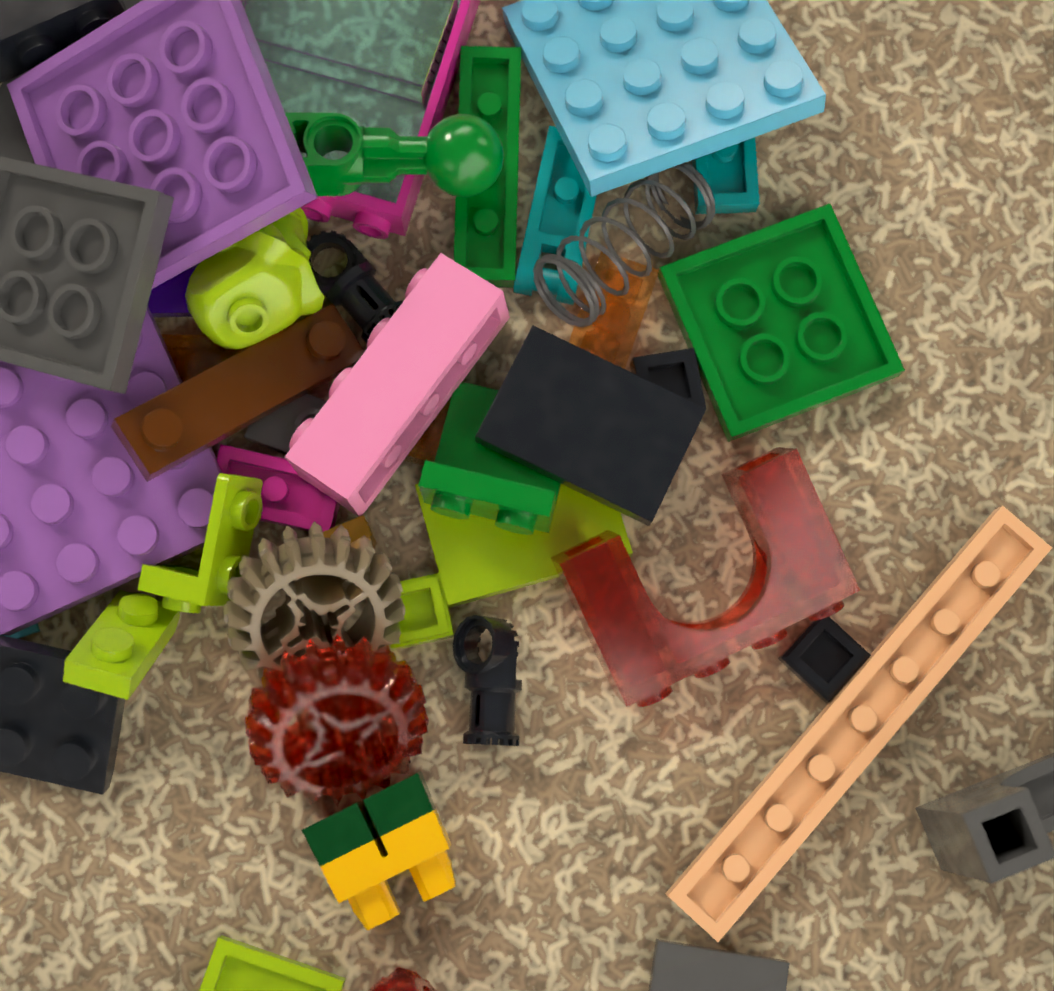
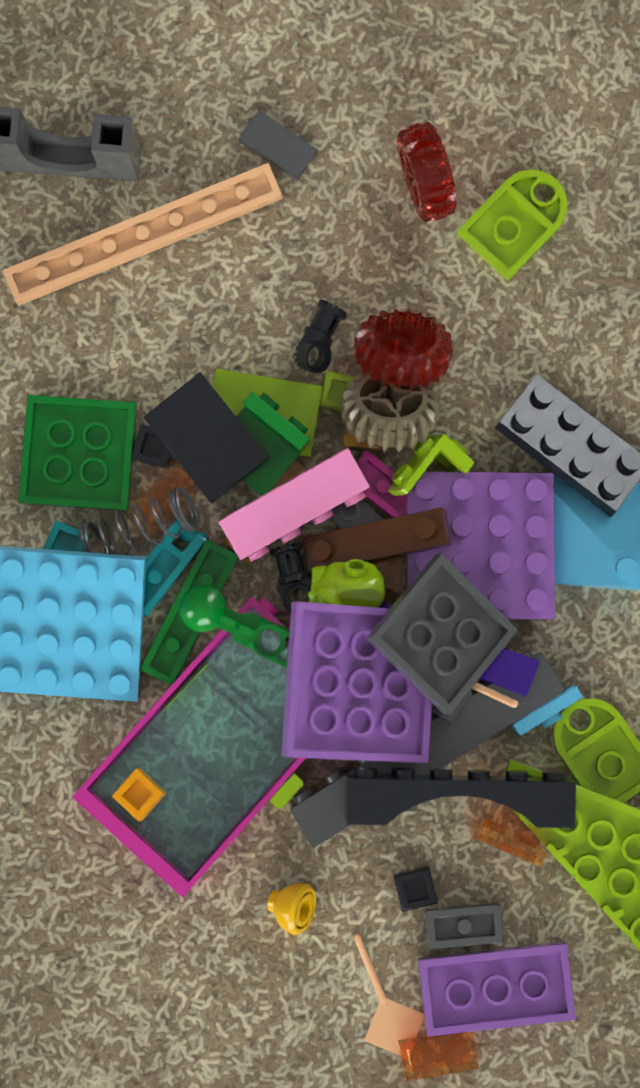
camera: 150 degrees left, 5 degrees up
(121, 645) = (494, 437): lime plate -> none
(357, 862) = (424, 279): yellow hips -> none
(793, 577) = (143, 314): clear red arch -> none
(824, 657) = (145, 273): black tile -> none

